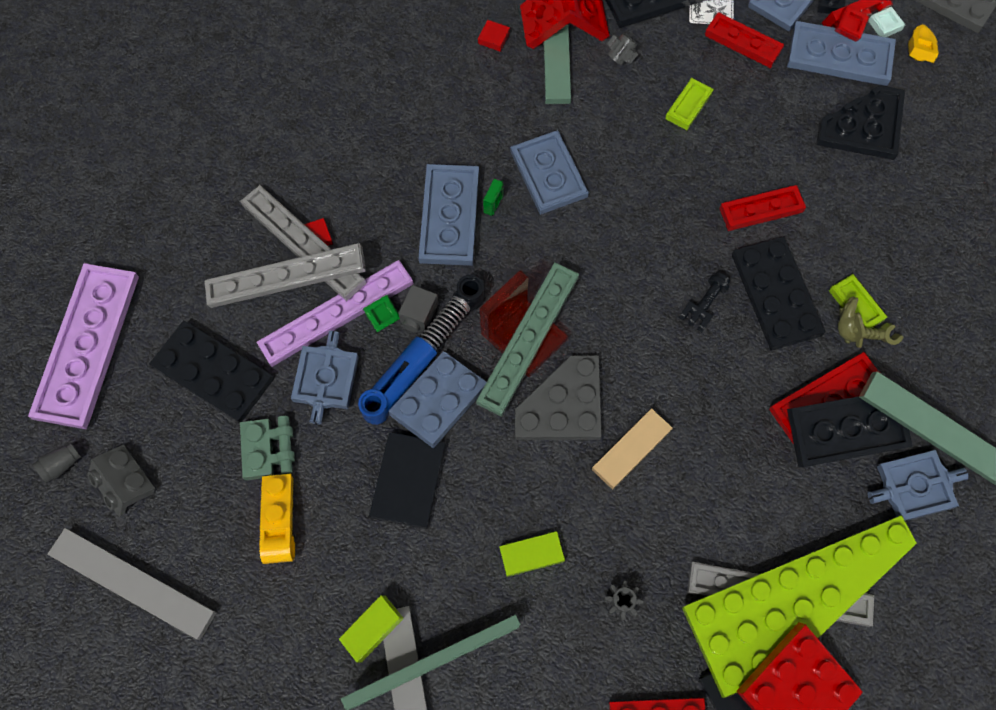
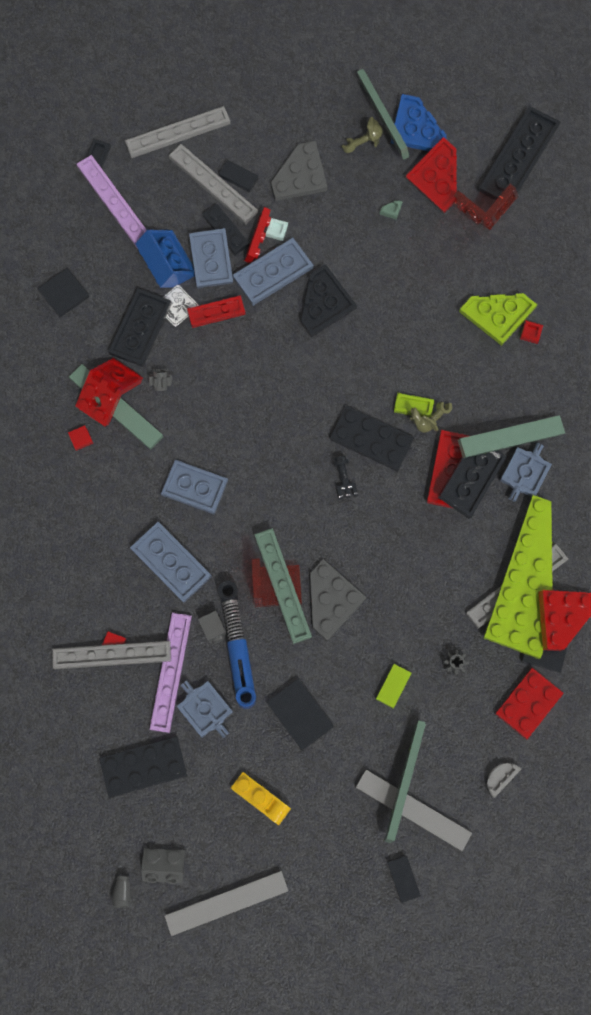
camera: 50 degrees left, 5 degrees up
(84, 346) = (63, 825): lavender plate -> none
(258, 451) = (212, 778): sand green plate -> none
(285, 275) = (126, 682): light grey tile -> none
(371, 629) = (361, 798): lime tile -> none
(381, 313) = (195, 648): green tile -> none
(437, 399) = (271, 661): sand blue plate -> none
(493, 197) = (184, 530): green tile -> none
(632, 448) = (385, 588): tan tile -> none
(689, 104) = (225, 376): lime tile -> none
(762, 207) = (321, 400): red plate -> none
(851, 23) = (264, 252): red tile -> none
(923, 44) = (308, 225): yellow plate -> none

